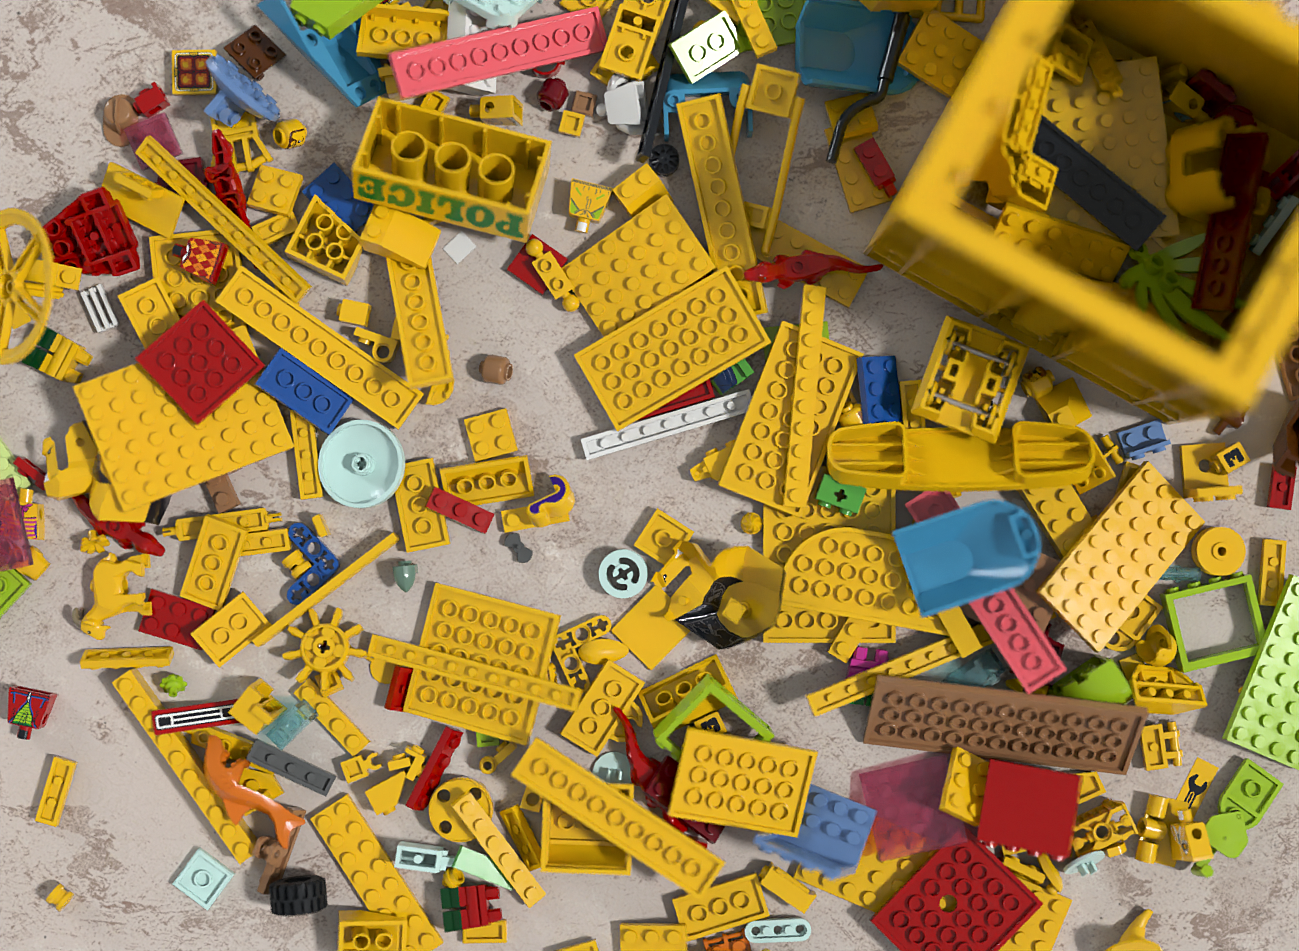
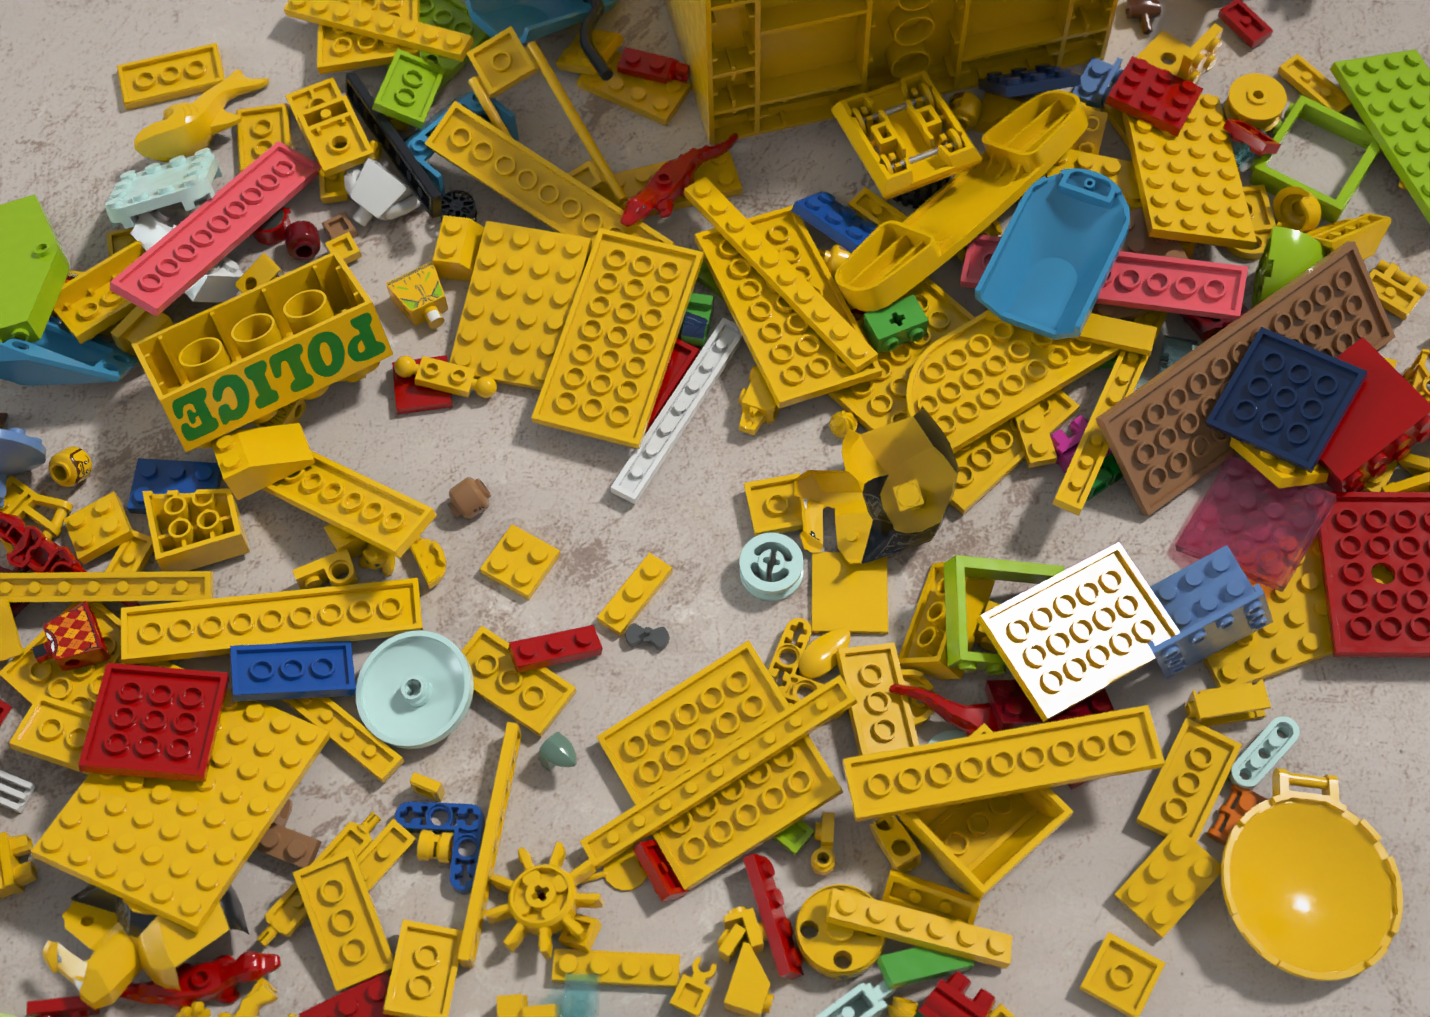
camera: 40 degrees left, 25 degrees down
(354, 312) = (277, 566): yellow brick -> none
(459, 247) = (332, 433): white sticker -> none
(489, 480) = (559, 595): yellow slope -> none
(553, 505) = (643, 555): yellow animal -> none
(999, 766) = (1286, 399): none -> dark blue plate
(1092, 407) = (1026, 81): none -> dark blue plate
(1155, 492) = (1154, 96): none -> red plate
(1184, 575) = (1245, 133): none -> red plate
(1229, 458) = (1181, 30): yellow brick -> none

